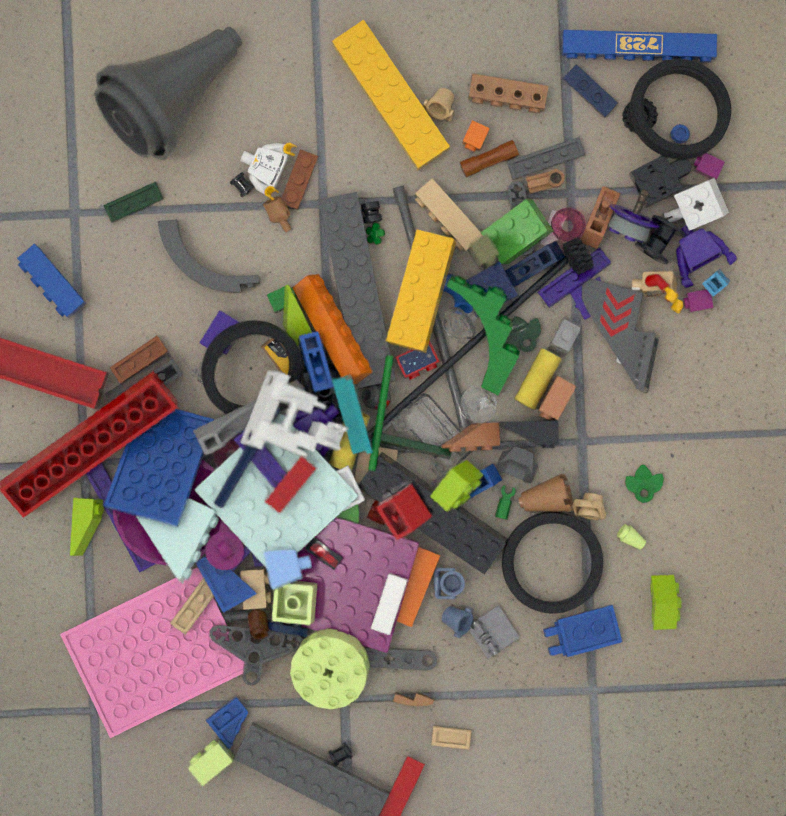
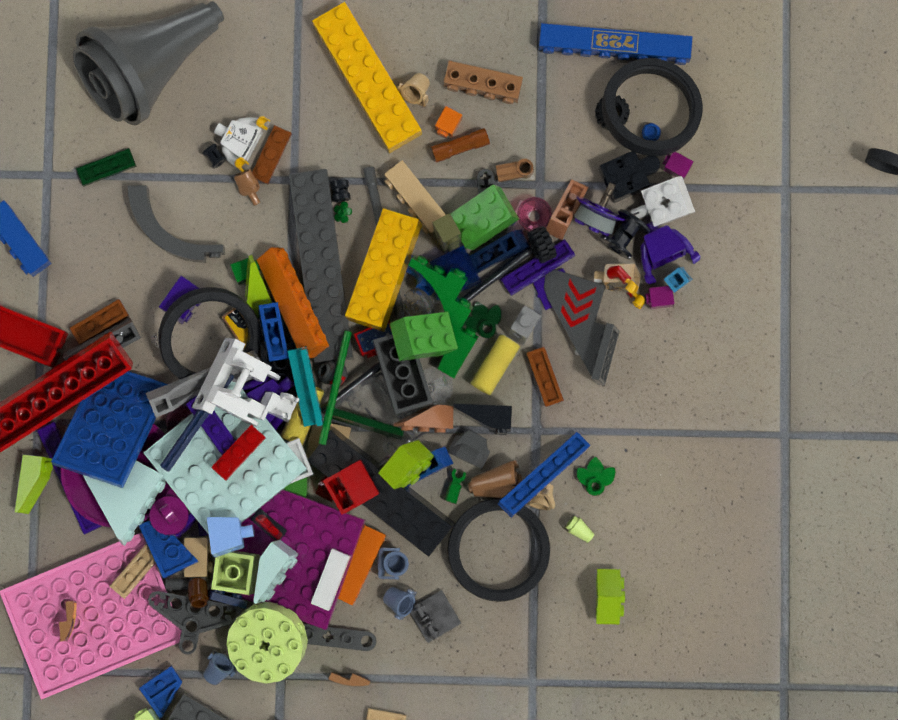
camera: 10 degrees right, 5 degrees down
(130, 665) = (66, 627): none -> medium nougat slope
(283, 696) = (218, 668): none -> sand blue piece
(331, 595) = (272, 569): none -> light aqua slope
(447, 394) = (403, 379): none -> dark grey brick
(466, 357) = (423, 336): none -> bright green brick
(545, 158) = (516, 148): dark grey tile -> none
(556, 399) = (511, 385): nougat piece -> none
(585, 632) = (527, 622): blue tile -> none
(588, 387) = (544, 377): none -> dark orange plate
(590, 90) = (564, 85): dark blue plate -> none
(593, 486) = (544, 474): none -> blue plate

